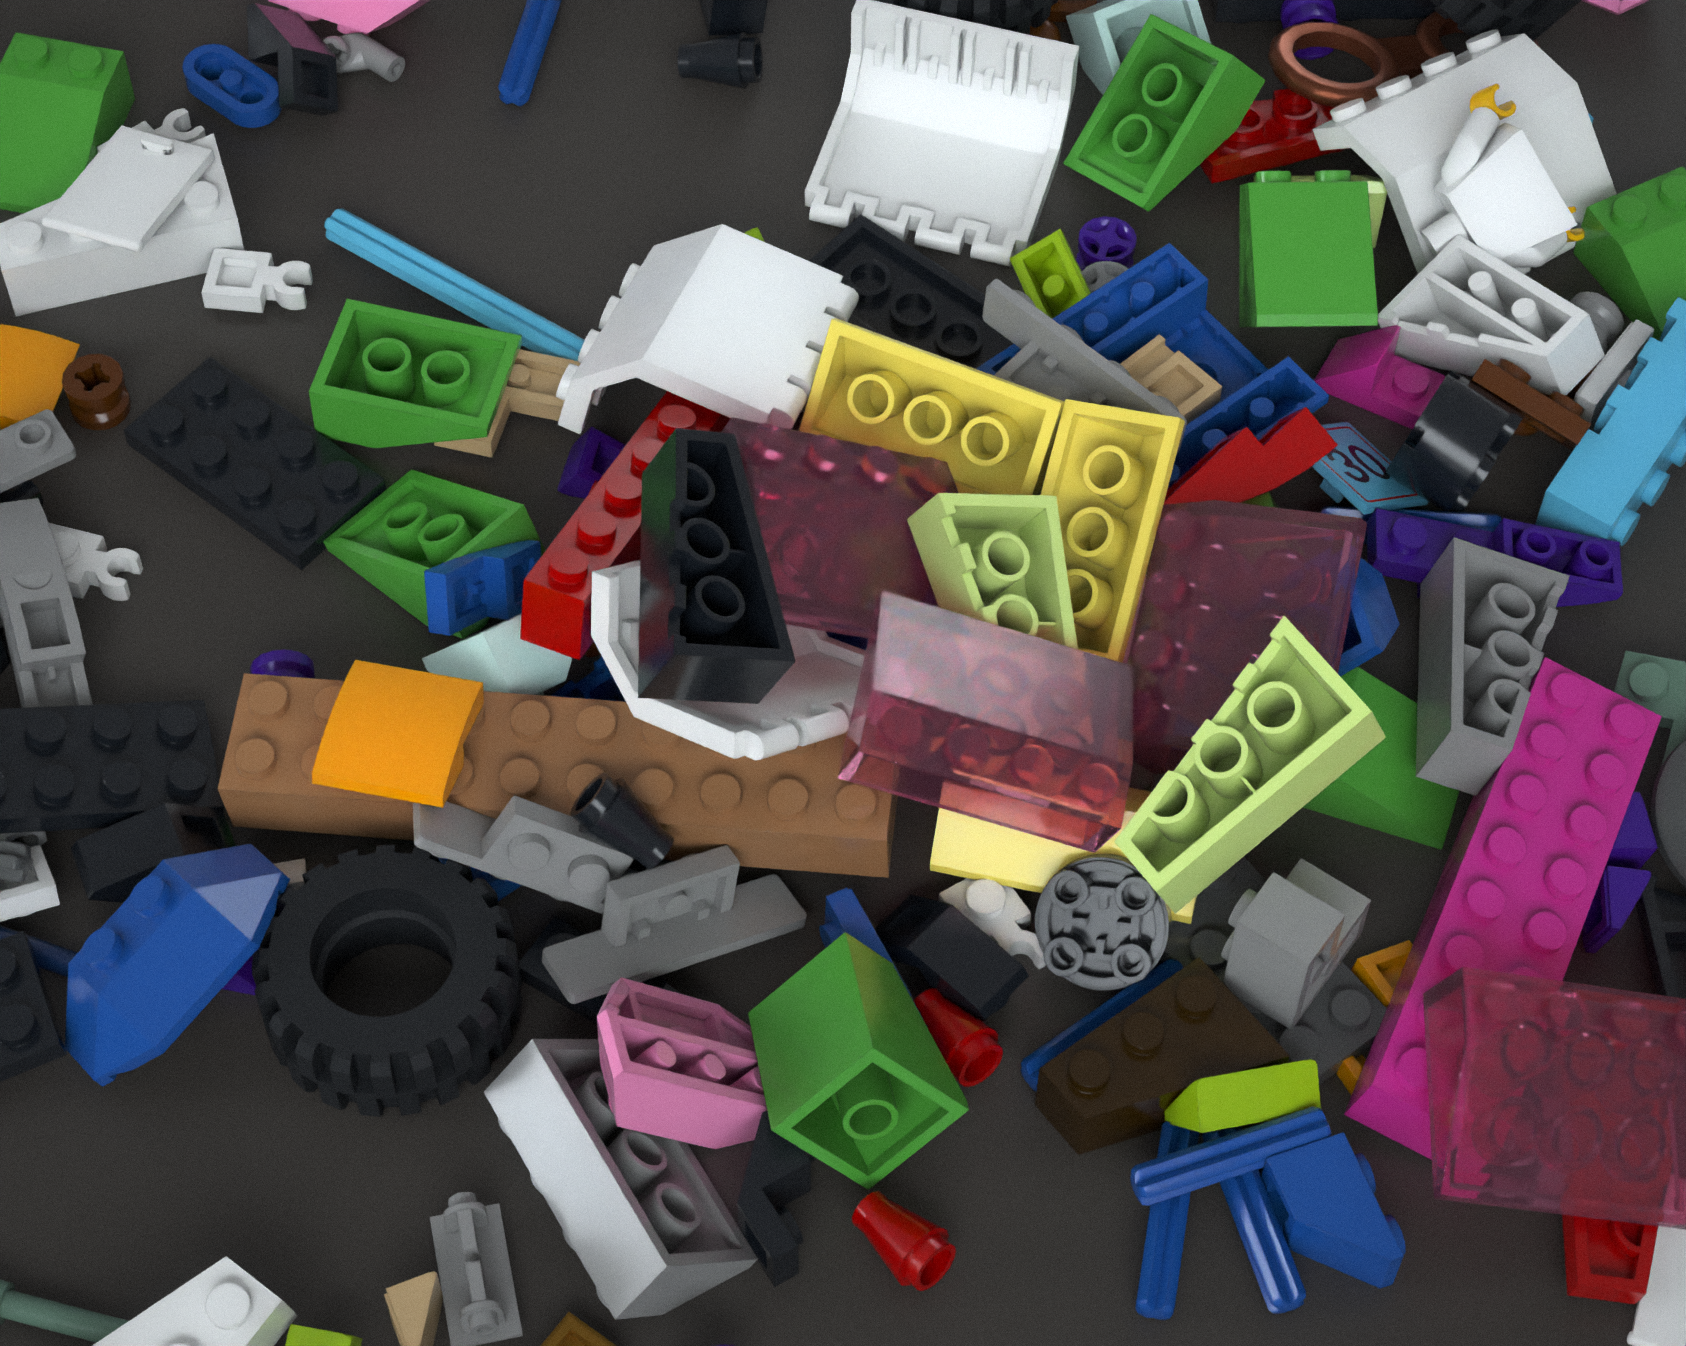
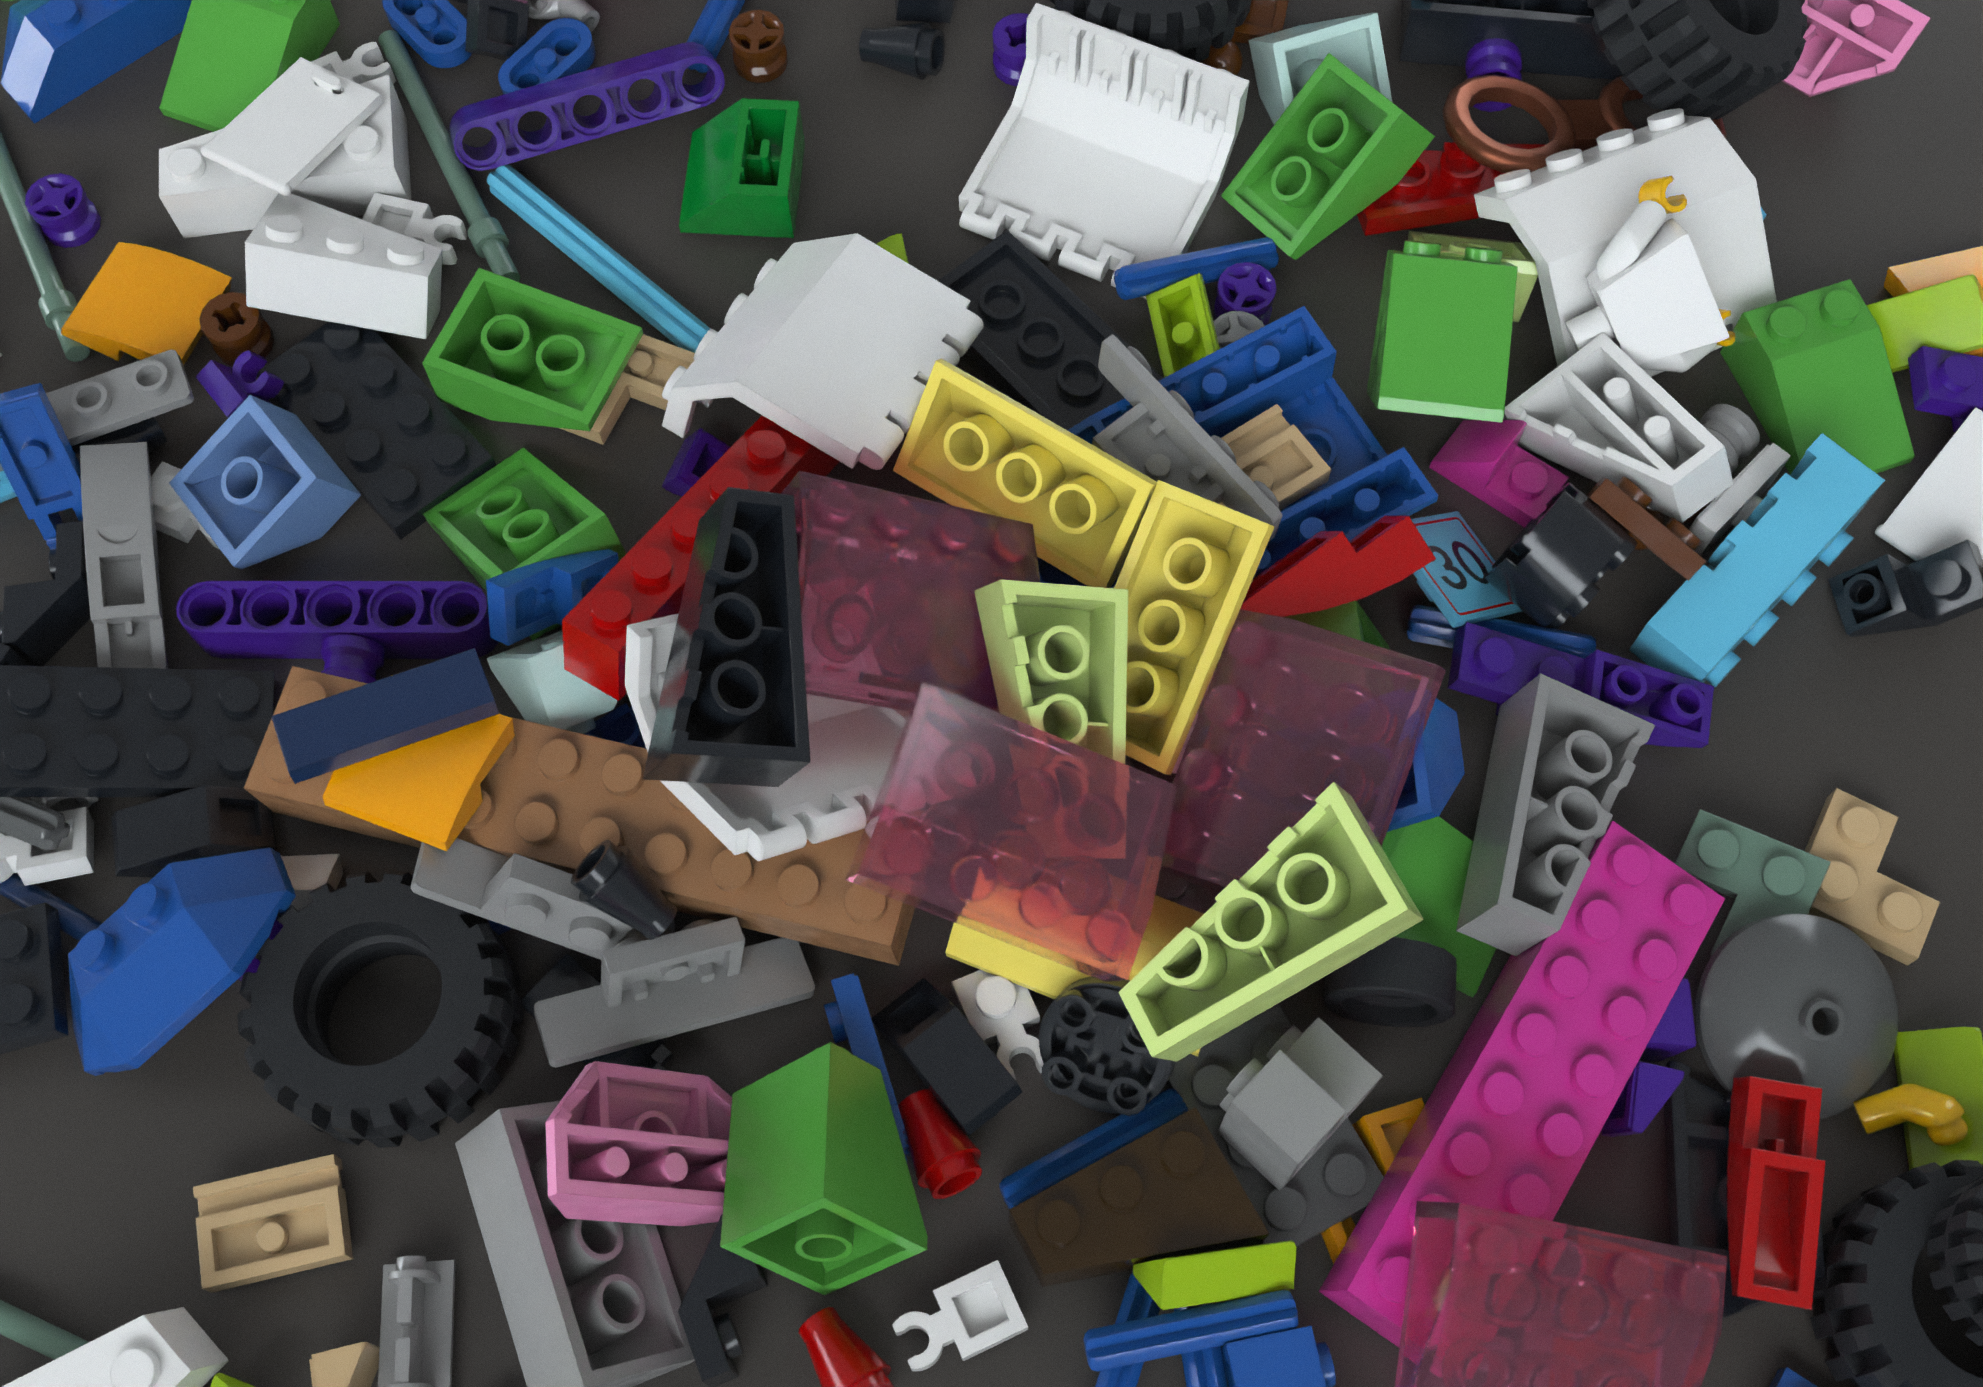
camera: 10 degrees right, 10 degrees up
(117, 446) = (233, 385): none -> dark purple tile
(160, 528) = (263, 485): none -> medium blue slope
(202, 320) = (341, 269): none -> white wedge
(233, 634) = (315, 606): none -> dark purple beam
(312, 1193) = (272, 1223): none -> tan plate
(330, 274) = (484, 231): none -> sand green bar
(356, 119) = (543, 56): none -> blue plate
(362, 689) = (384, 715): none -> dark blue tile
(389, 138) = (558, 98): none -> dark purple beam
(575, 73) = (748, 35): none -> reddish brown wheel
(586, 188) = (745, 171): none -> green slope
(831, 48) = (1007, 59): none -> dark purple wheel
(1008, 240) = (1150, 276): none -> blue axle
(1014, 1178) = (974, 1314): none -> white plate
(1361, 805) = (1395, 985): none -> black tyre

